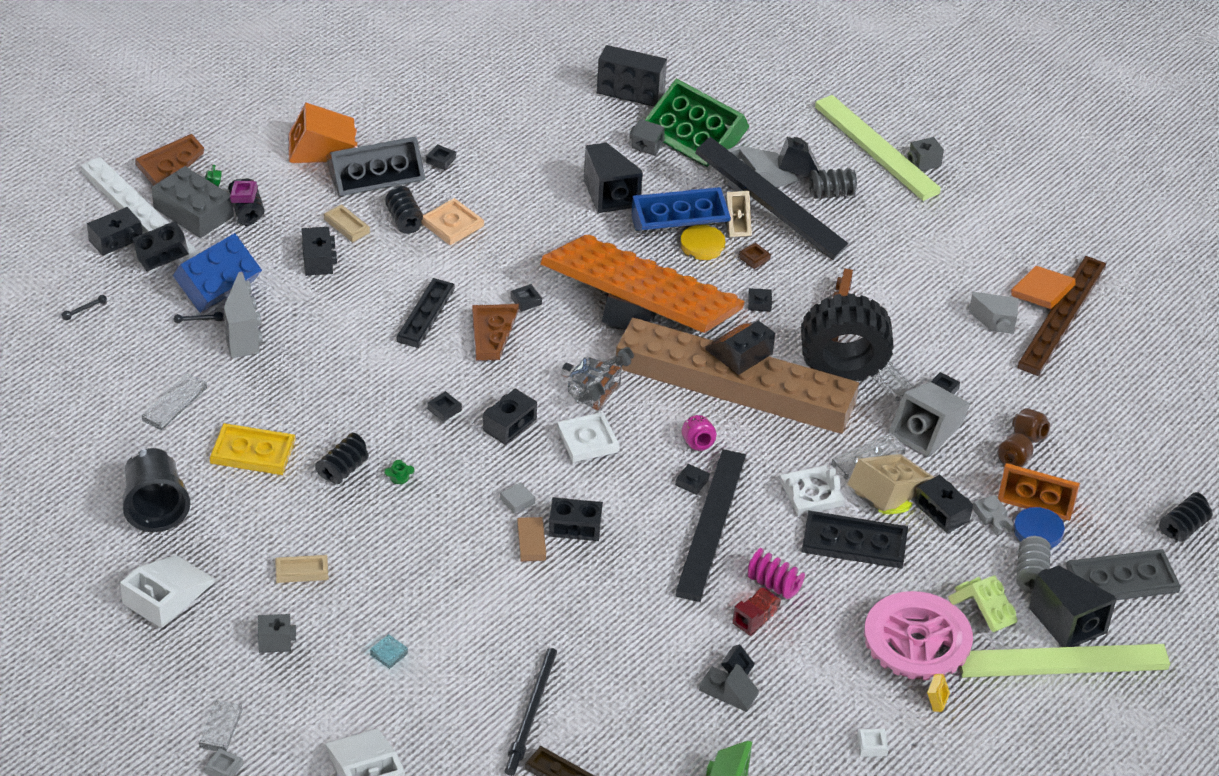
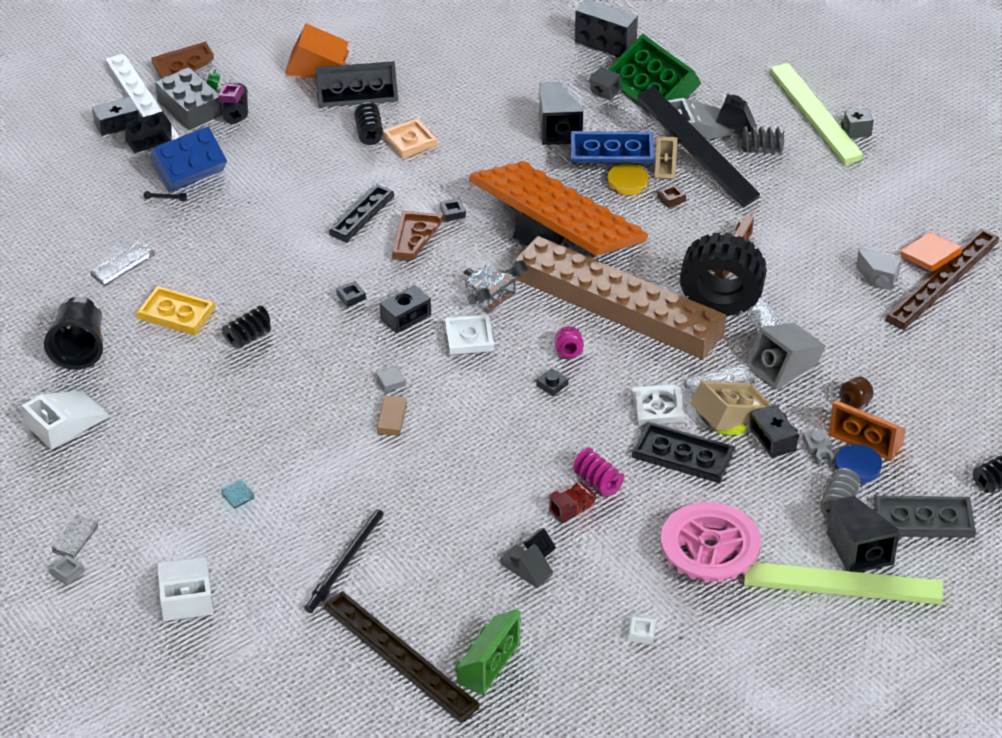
camera: 15 degrees right, 0 degrees up
(67, 315) = (55, 181): black hinge -> none
(242, 320) = (196, 200): light grey slope -> none
(275, 633) = (143, 465): dark grey brick -> none
(301, 568) = (185, 415): tan tile -> none
(317, 251) = (283, 150): black brick -> none
(347, 223) = (317, 130): tan tile -> none
(399, 472) = (294, 345): green plate -> none
(440, 157) = (416, 82): black plate -> none
(575, 519) = (434, 403): black brick -> none
(710, 526) = (555, 424): black tile -> none
(743, 346) = (626, 271): black slope -> none
(759, 299) = (664, 234): black plate -> none
(938, 692) = (714, 594): yellow tile -> none
(946, 382) = (811, 326): black plate -> none
(990, 599) = (786, 520): yellowish green bracket -> none
(1031, 424) = (879, 372): reddish brown head -> none

